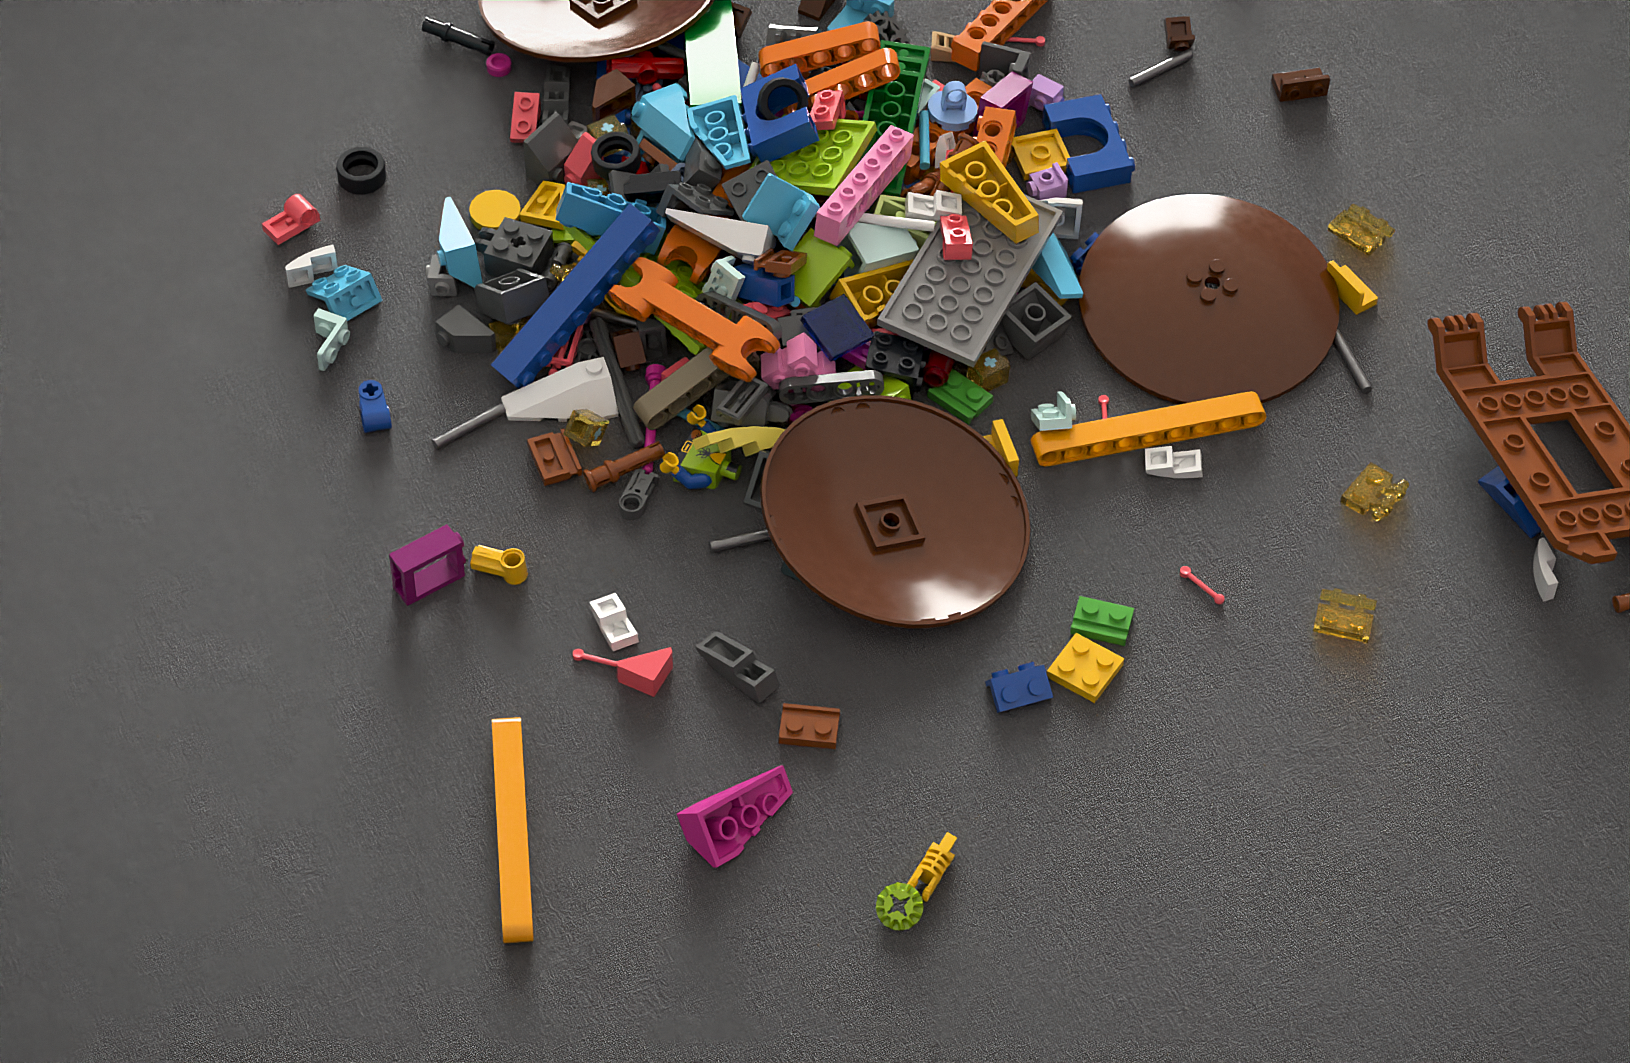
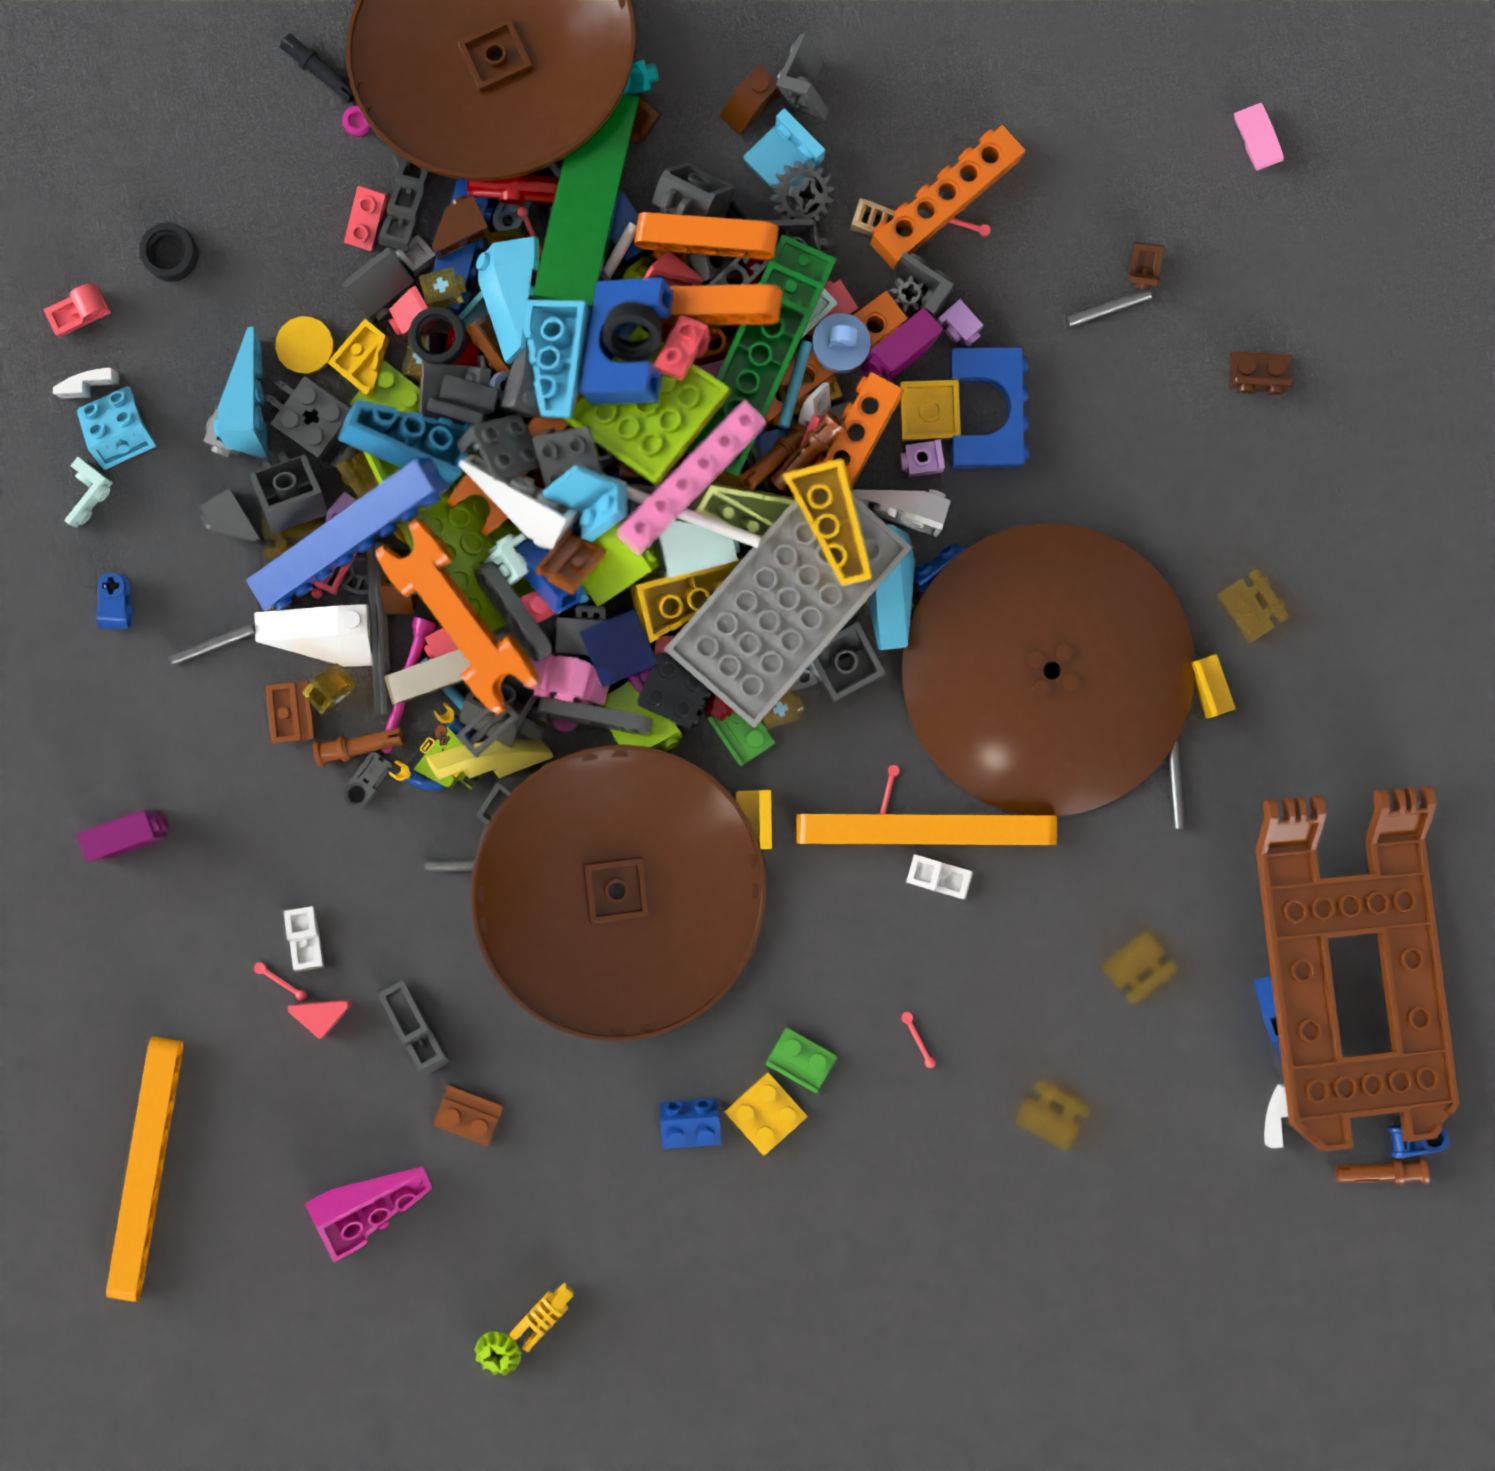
camera: 15 degrees right, 35 degrees up
(507, 563) = (201, 838): yellow piece -> none
(932, 207) = (766, 513): white slope -> none
(956, 237) = (778, 565): coral plate -> none
(1054, 418) = (826, 796): light aqua bracket -> none

